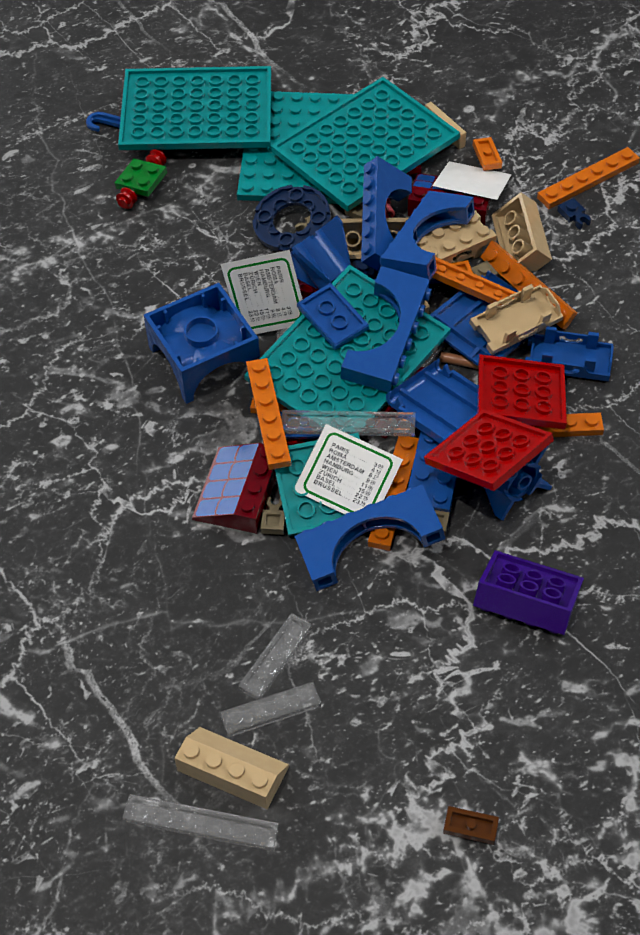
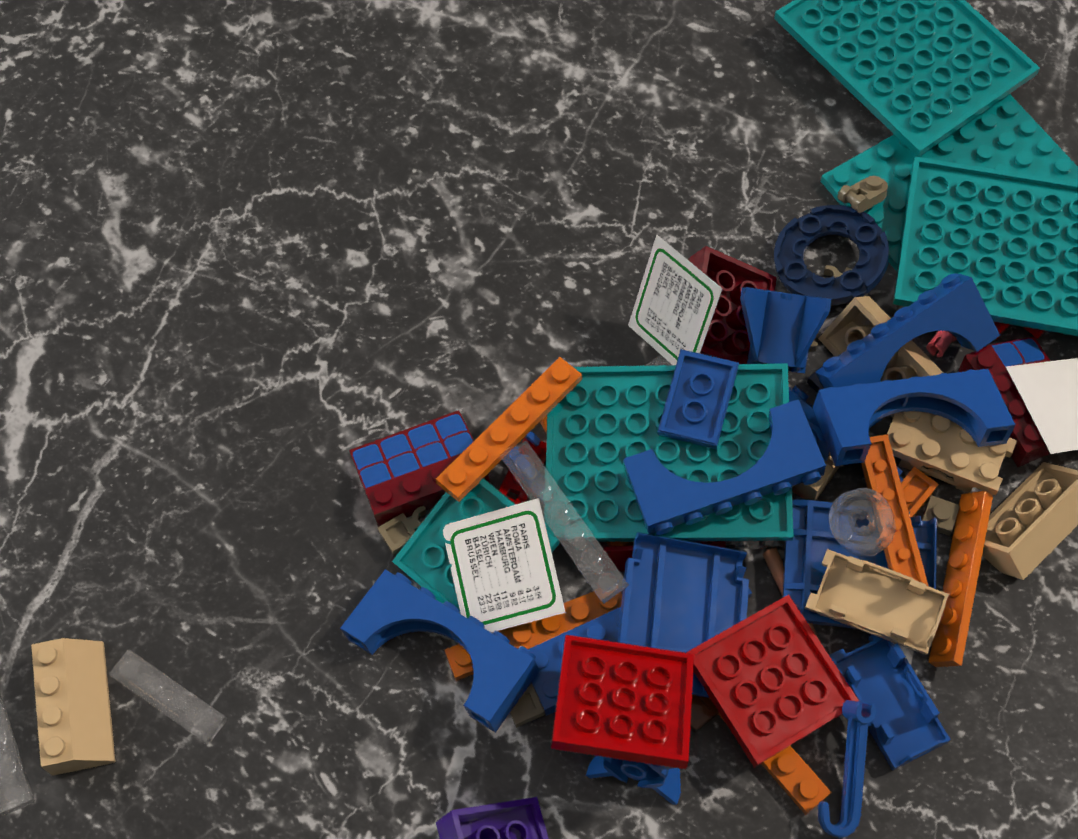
camera: 55 degrees right, 10 degrees up
(140, 178) = (758, 68): green plate -> none
(200, 336) = (567, 287): blue piece -> none
(271, 179) = (864, 193): none -> dark tan plate
(275, 657) = (230, 656): clear plate -> none
(479, 294) = (856, 505): none -> clear brick
(573, 367) = (858, 717): none -> blue piece

